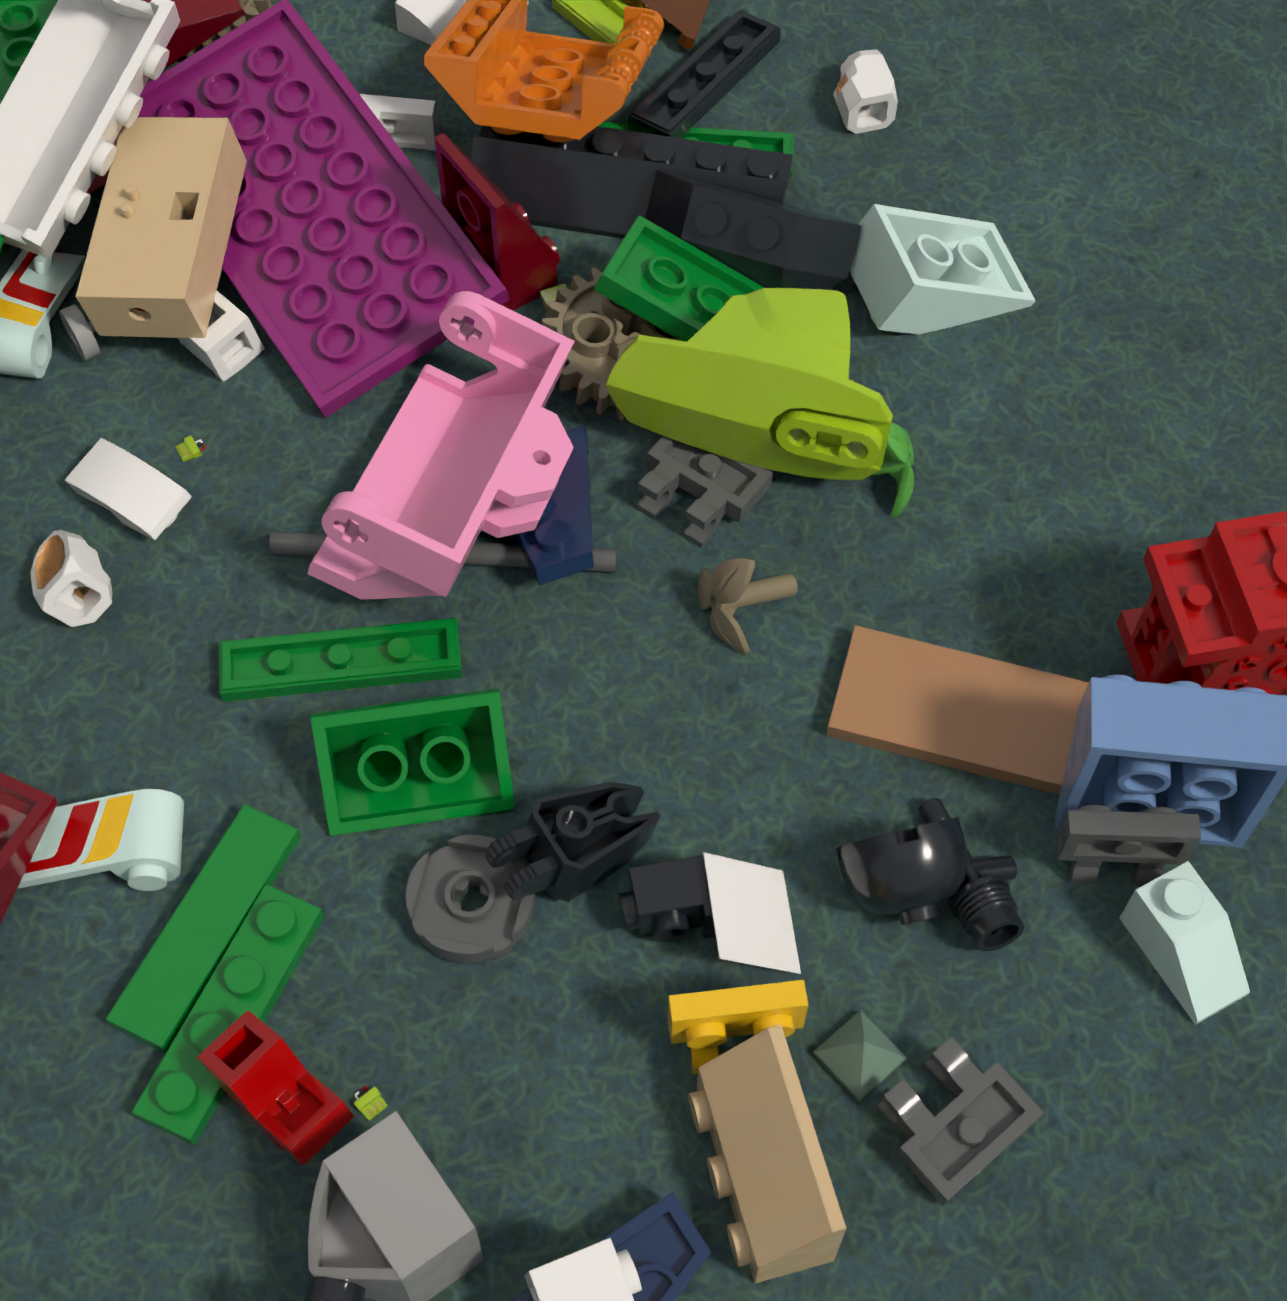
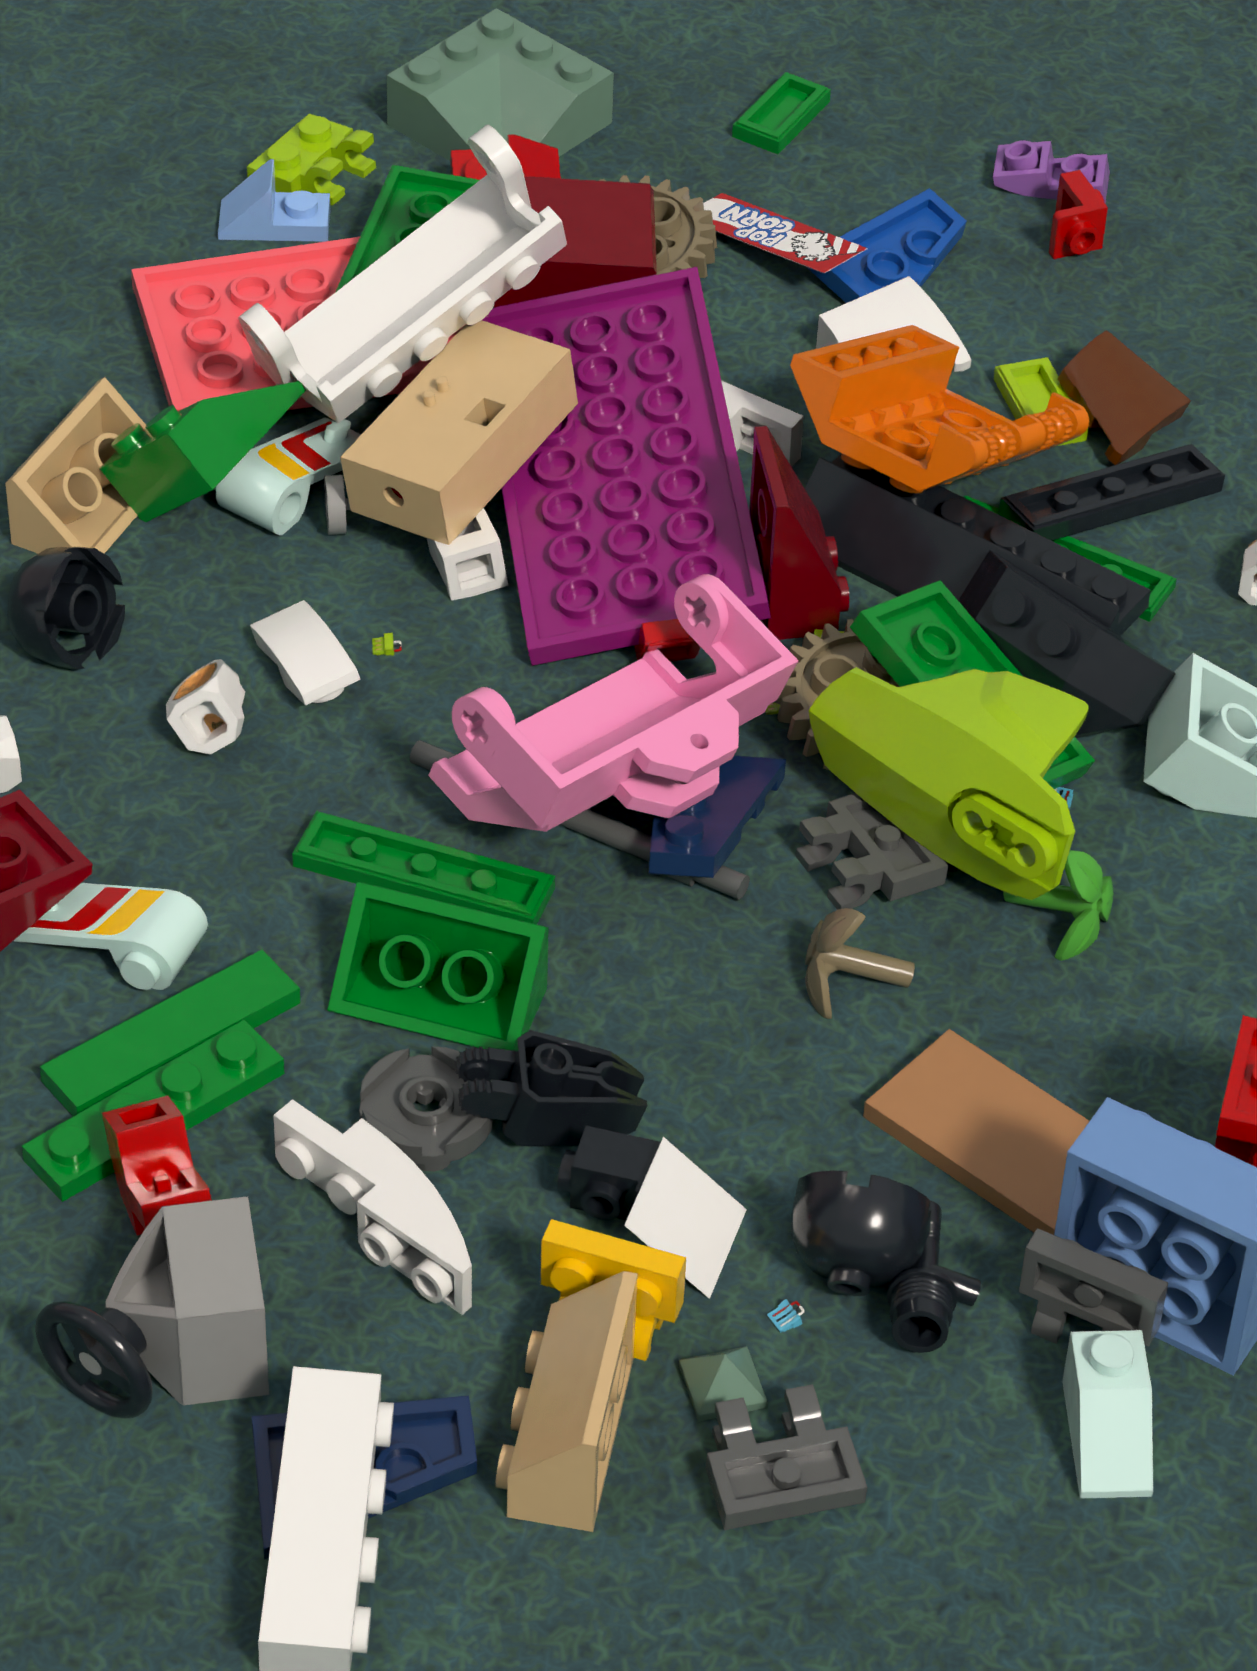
camera: 25 degrees right, 15 degrees down
(432, 352) = (668, 638): none -> red tile
(512, 1025) = (396, 1205): none -> white slope
(873, 963) = (785, 1317): none -> medium azure piece

